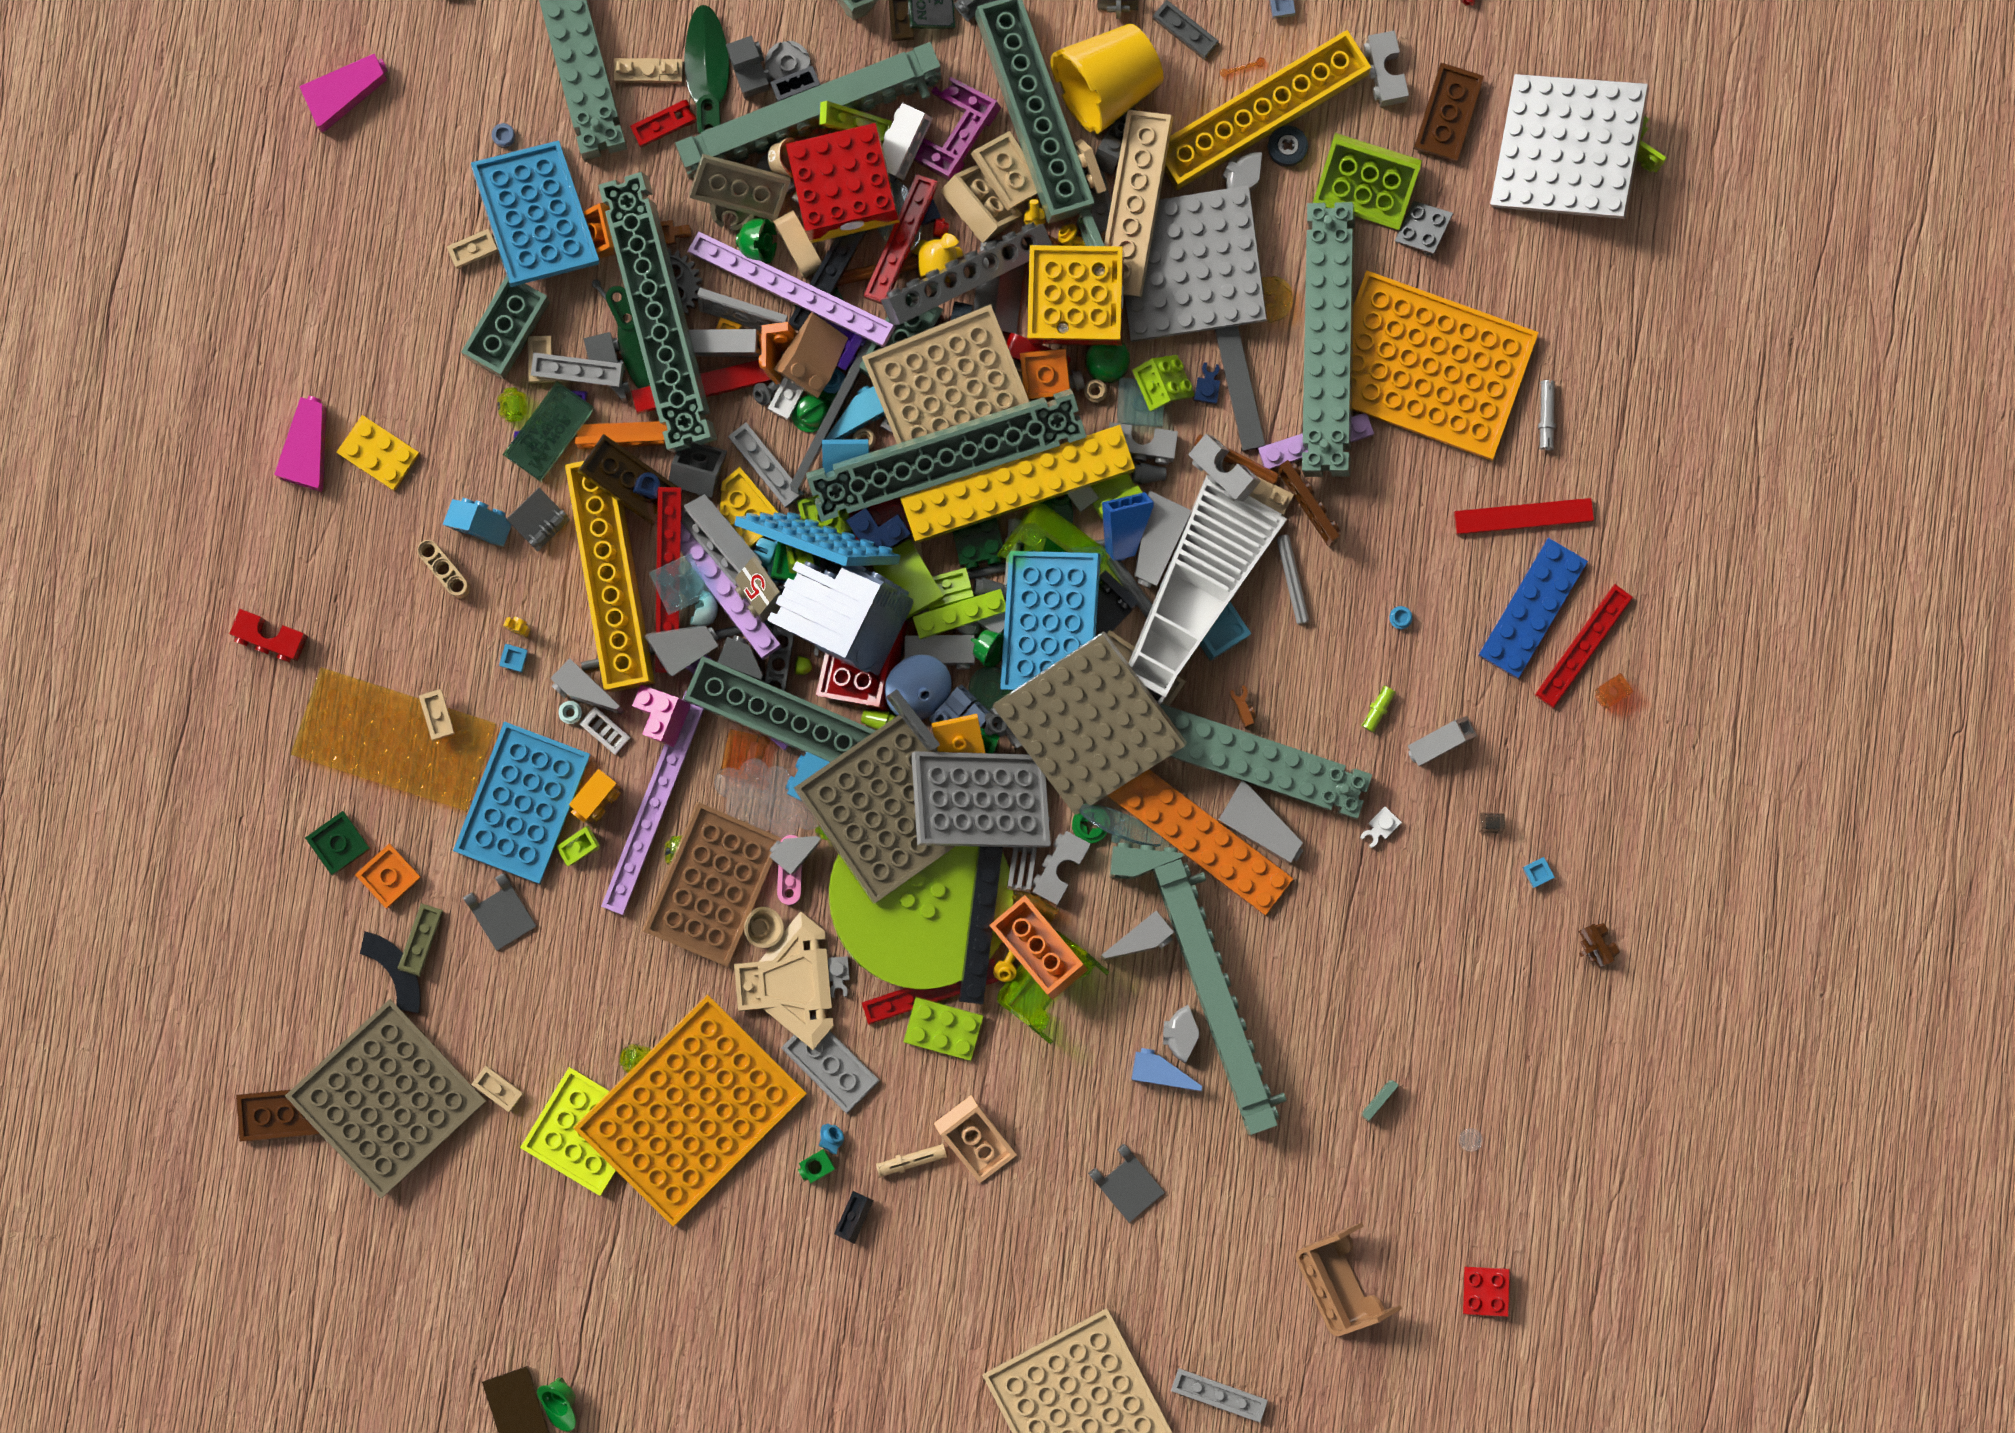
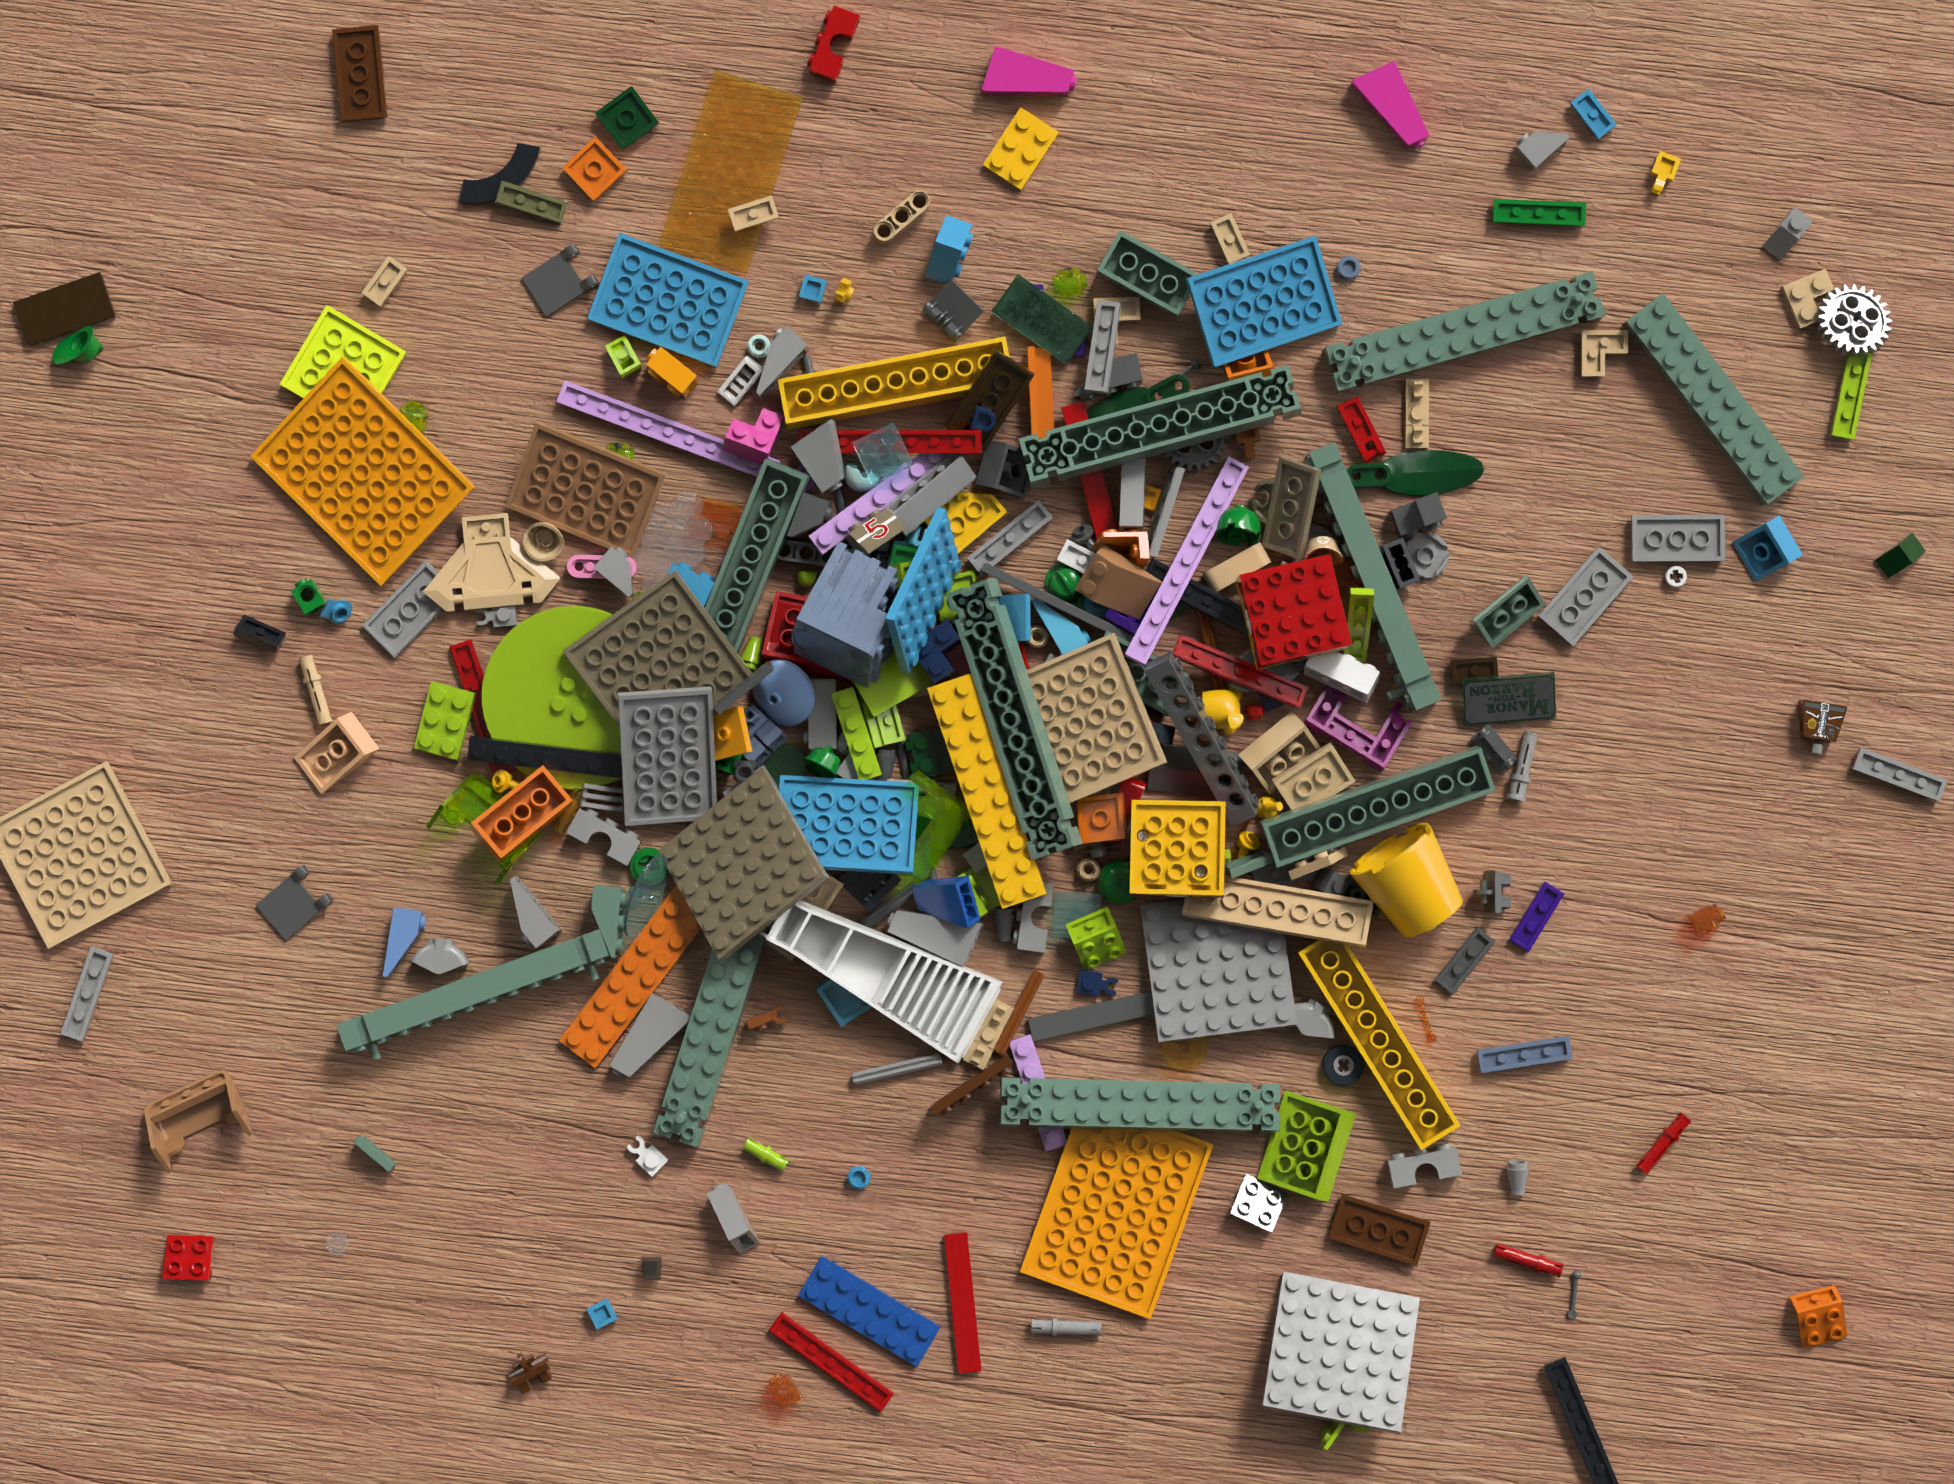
camera: 90 degrees right, 5 degrees up
(385, 1098) = (373, 171): dark tan plate -> none
(1209, 456) = (1017, 984): light grey arch -> none

